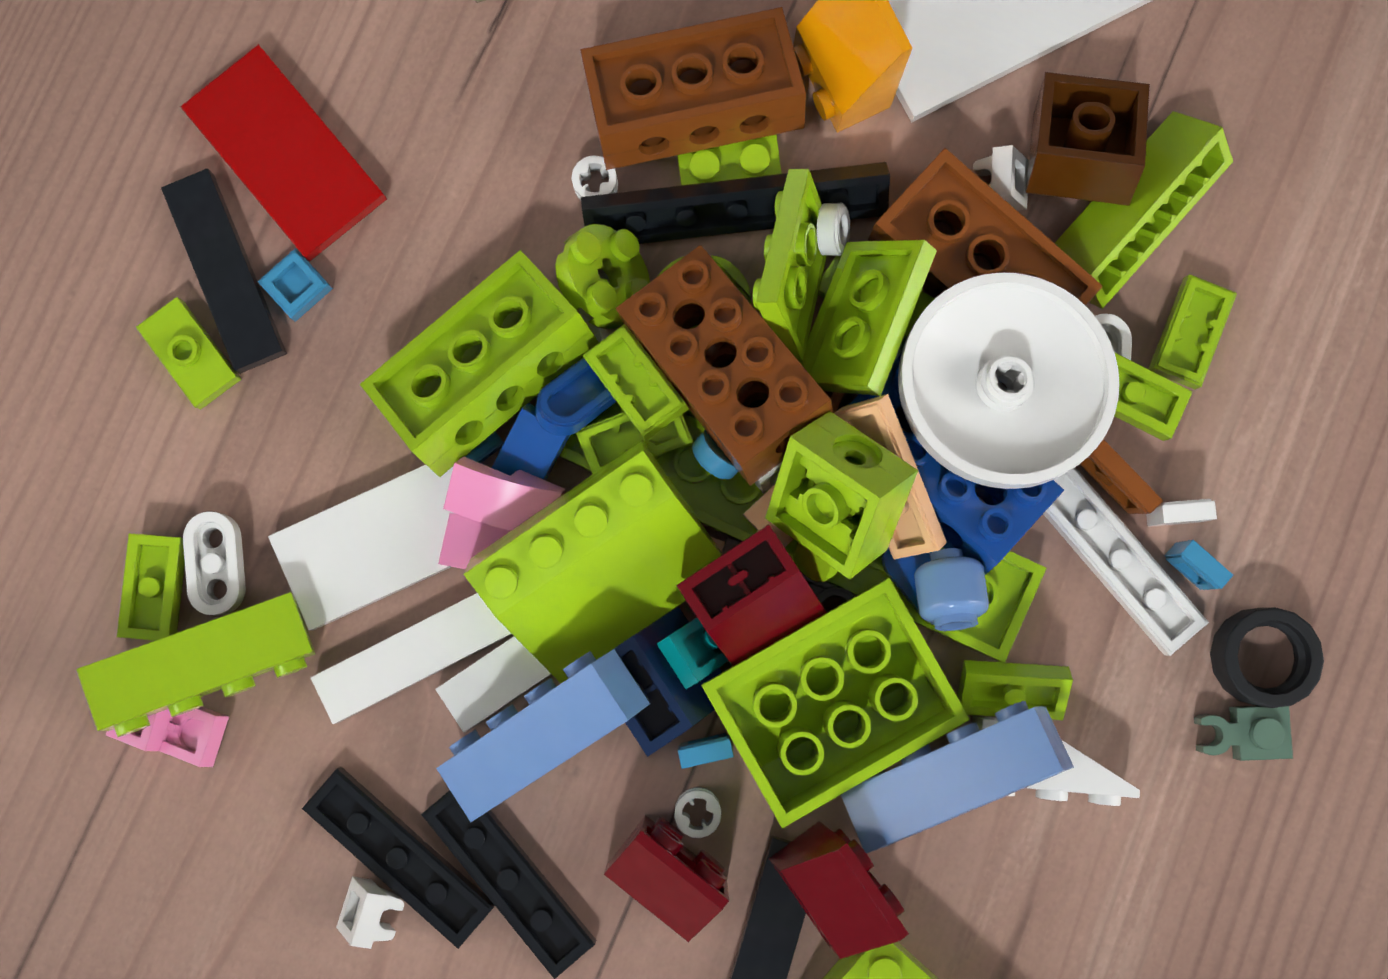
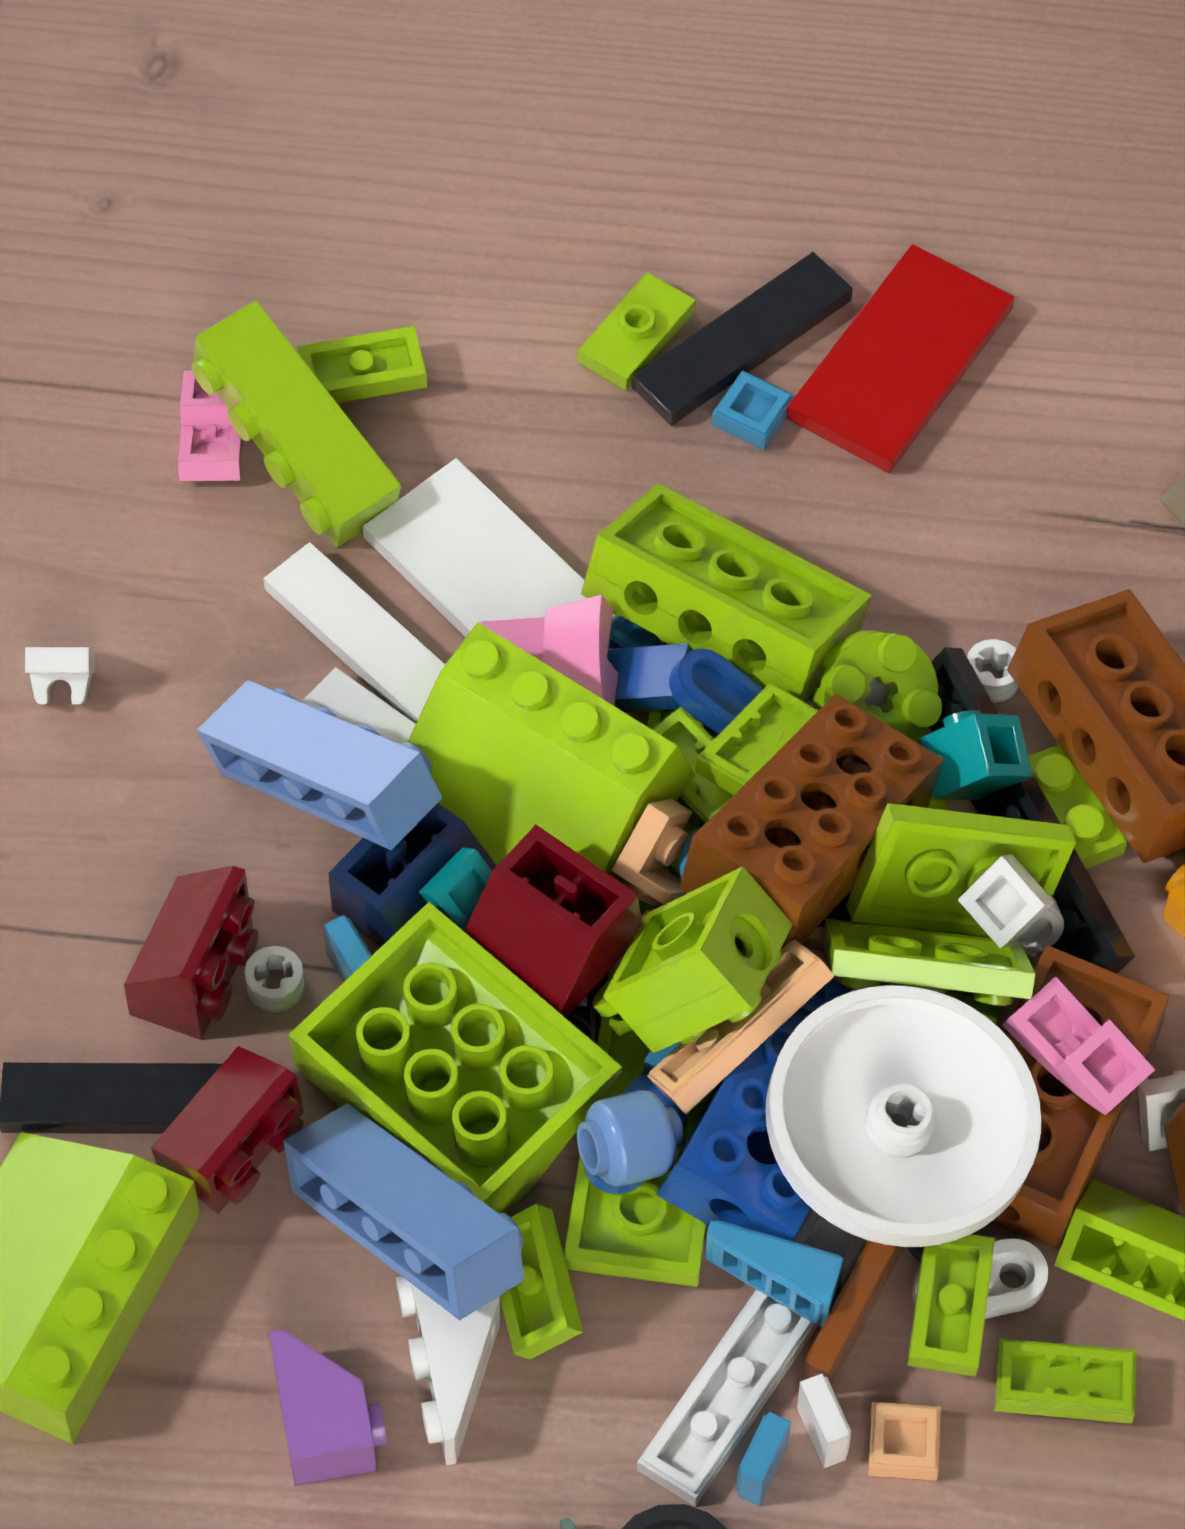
camera: 70 degrees right, 25 degrees down
(208, 565) = (405, 415): white plate -> none
(398, 857) = (130, 690): black tile -> none
(512, 884) = (131, 812): black tile -> none
(690, 216) = (978, 755): none -> teal brick
(709, 499) = (652, 844): none -> light nougat bracket
(836, 239) = (1006, 901): none -> white plate
(978, 228) = (1076, 1049): none -> bright pink slope
(1075, 877) = (324, 1414): none -> medium lavender slope
(1083, 493) = (782, 1269): none -> dark azure slope
(1199, 459) = (904, 1441): none -> light nougat tile

